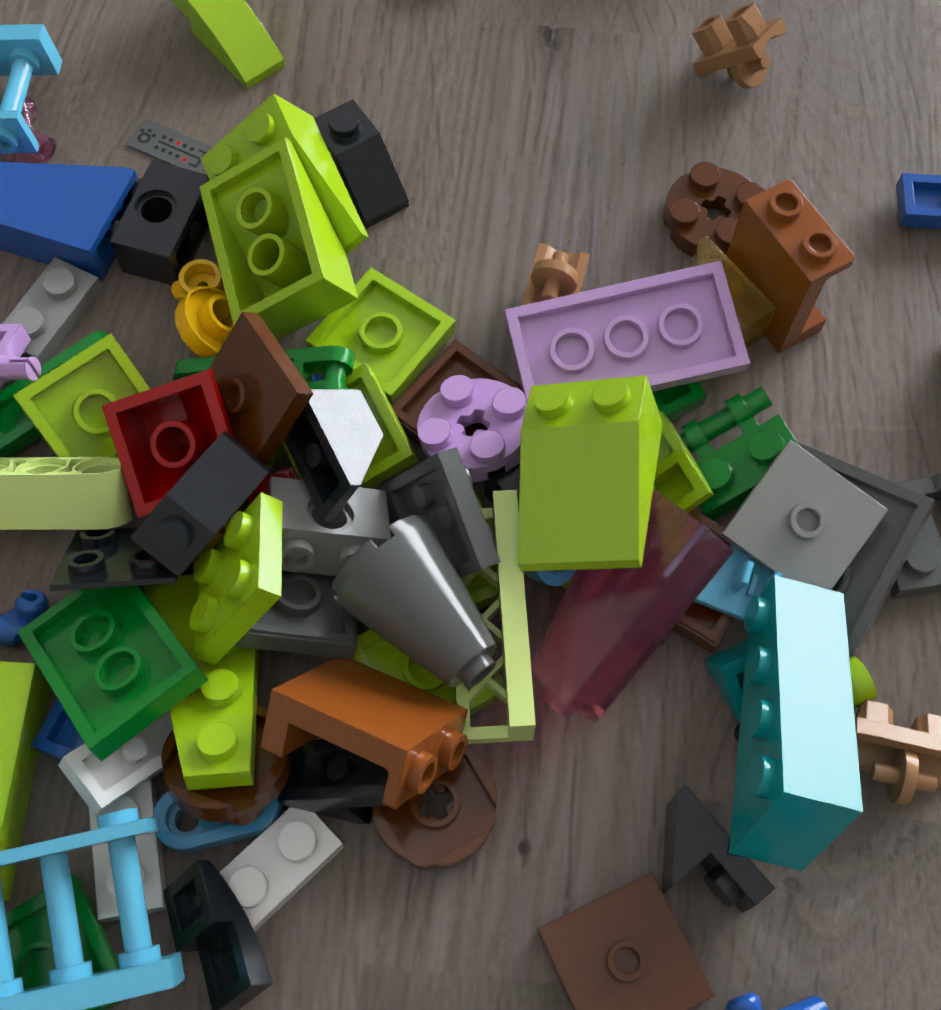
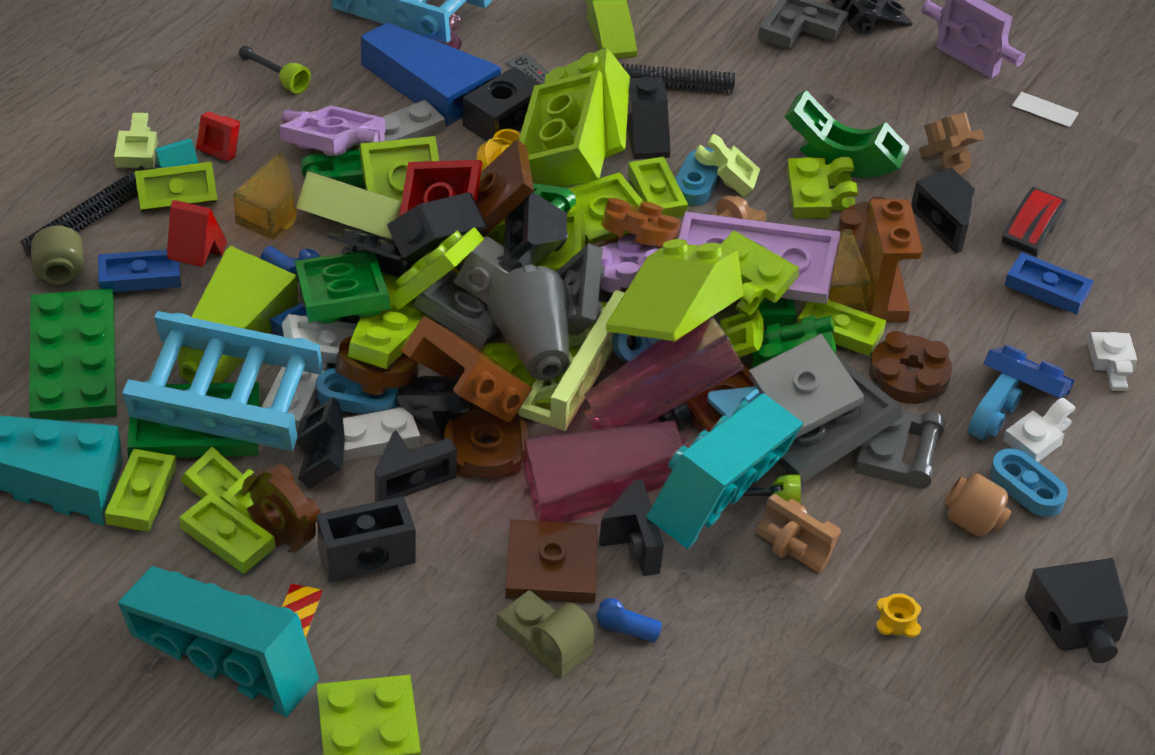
camera: 25 degrees right, 20 degrees down
(351, 928) = (408, 472): none -> black slope
(352, 81) = (685, 78): none -> black axle
(428, 268) = (657, 185): none -> lime plate
(456, 352) = (643, 222): none -> dark orange plate
(463, 219) = (697, 180): none -> dark azure plate
(507, 194) = (734, 167): none -> yellowish green plate
(597, 786) = (591, 469): none -> clear pink slope
(605, 184) = (810, 184): none -> lime plate
(620, 104) = (872, 150): none -> green arch
(667, 361) = (762, 272): none -> lime plate
(782, 143) = (945, 206): none -> black slope
(786, 378) = (852, 327): none -> lime plate
(882, 116) = (1034, 221): none -> slope
(889, 383) = (928, 357): none -> reddish brown plate

